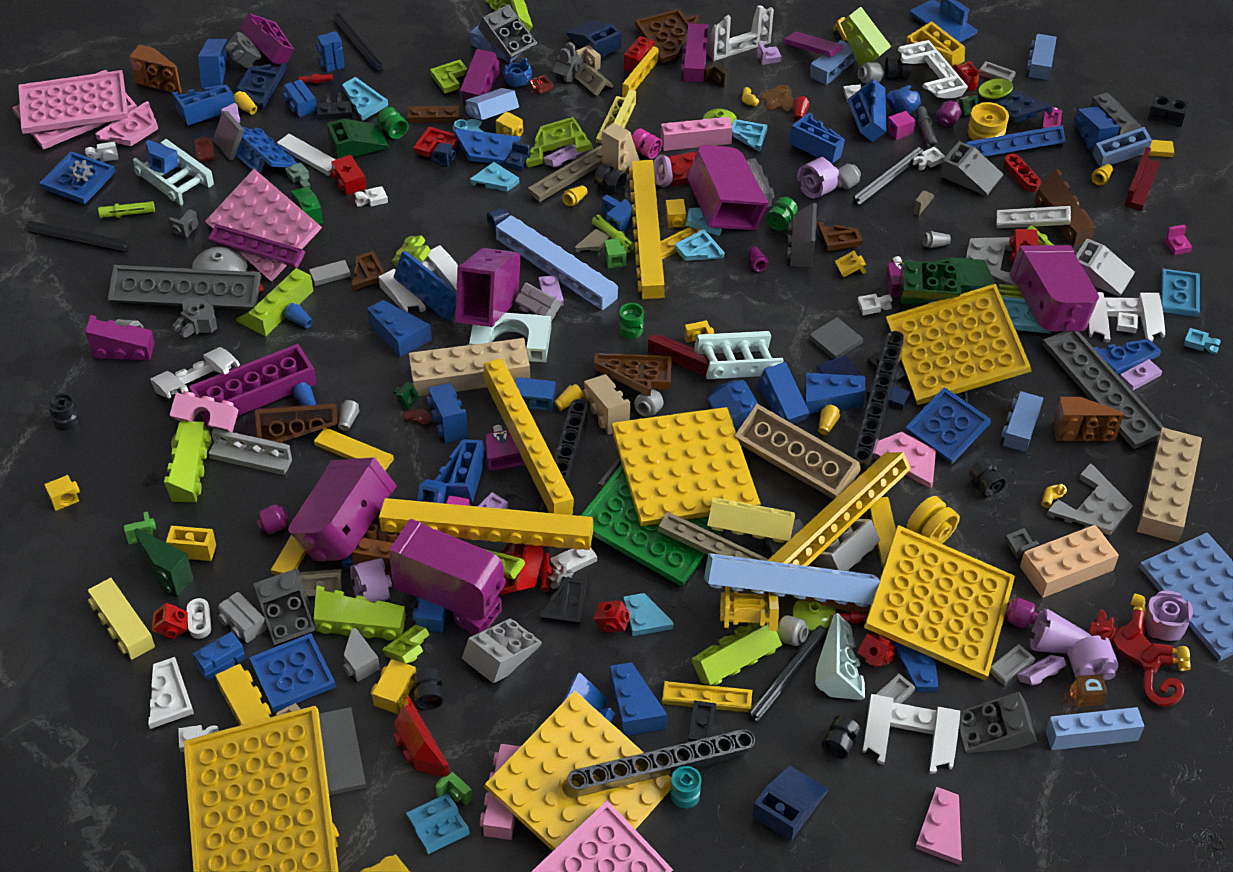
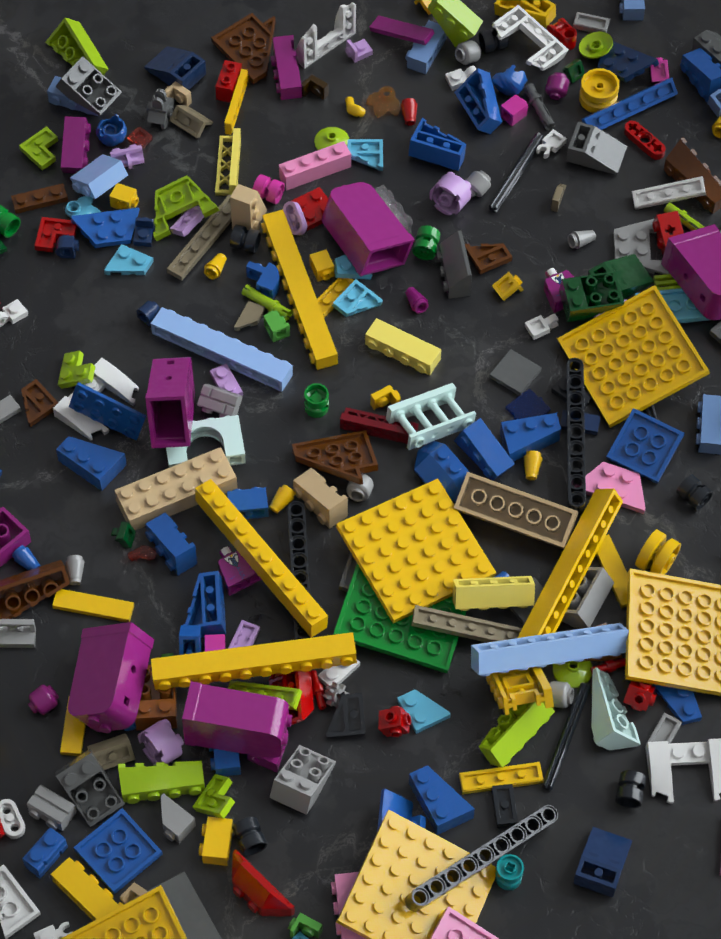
camera: 15 degrees left, 10 degrees up
(527, 95) = (130, 156): none -> lavender hips
(731, 294) = (402, 347): none -> light yellow brick

